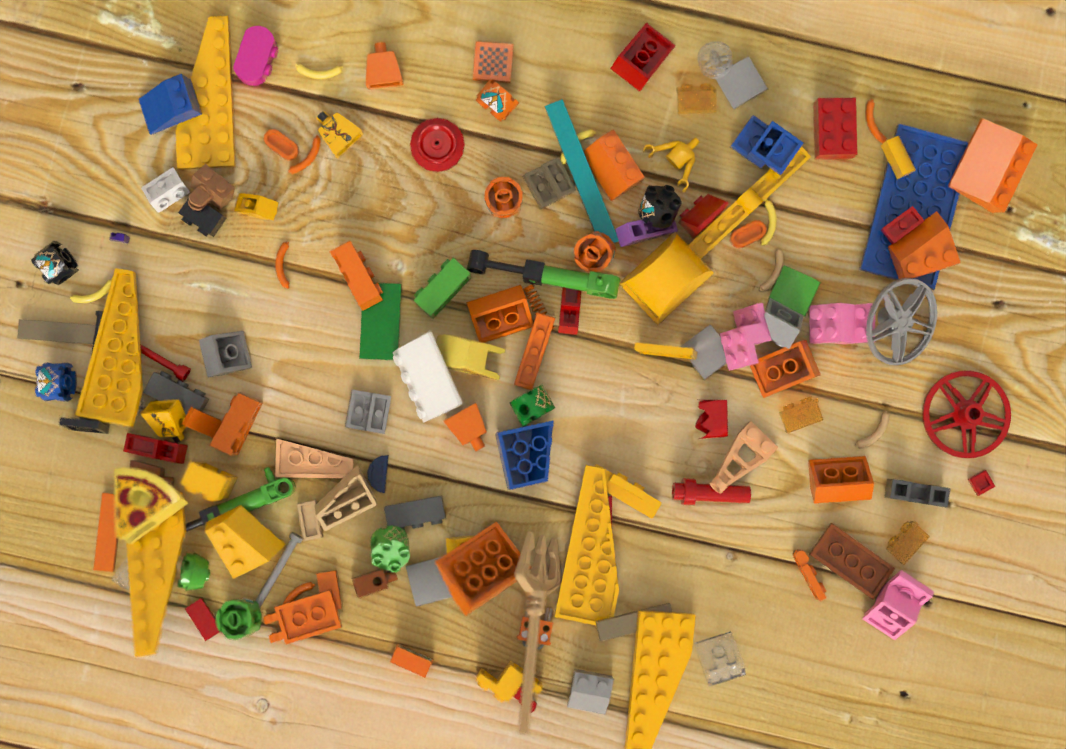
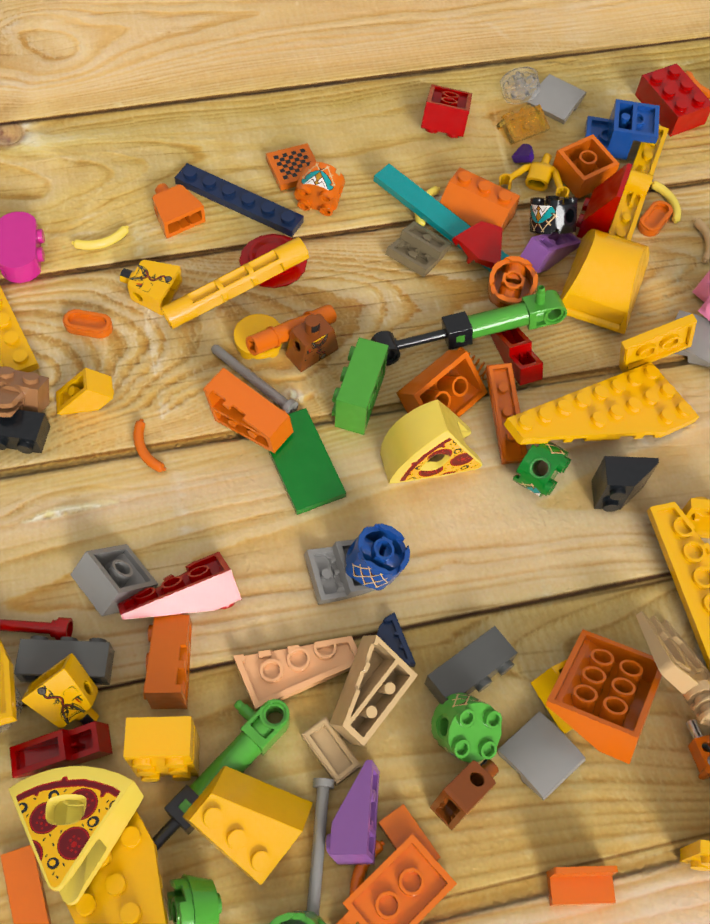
camera: 20 degrees left, 25 degrees down
(202, 422) = (117, 677): orange tile -> none
(271, 385) = (202, 588): none -> wedge
(302, 569) = (355, 824): none -> medium lavender slope
(309, 159) = (128, 326): orange piece -> none
(390, 277) = (287, 405): none -> light grey bar
(391, 417) = (377, 556): none -> blue brick
(394, 210) = (249, 326): none -> yellow tile
(396, 161) = (235, 283): none -> yellow piece
(417, 219) = (274, 336): none -> orange piece
(426, 377) = (400, 483): white slope -> none
(428, 235) = (311, 342): none -> dark orange torso
(436, 76) = (239, 200): none -> dark blue plate
(468, 426) = (477, 531): orange torso -> none
(503, 197) = (378, 273): orange brick -> none
(525, 454) = (567, 531): blue wedge -> none
(577, 439) = (620, 480): none -> black slope
(593, 206) = (481, 243): none -> red slope
(615, 386) = (623, 405): none -> yellow wing
(679, 129) = (523, 154): none -> dark purple tile
(717, 166) = (585, 165): none -> orange brick

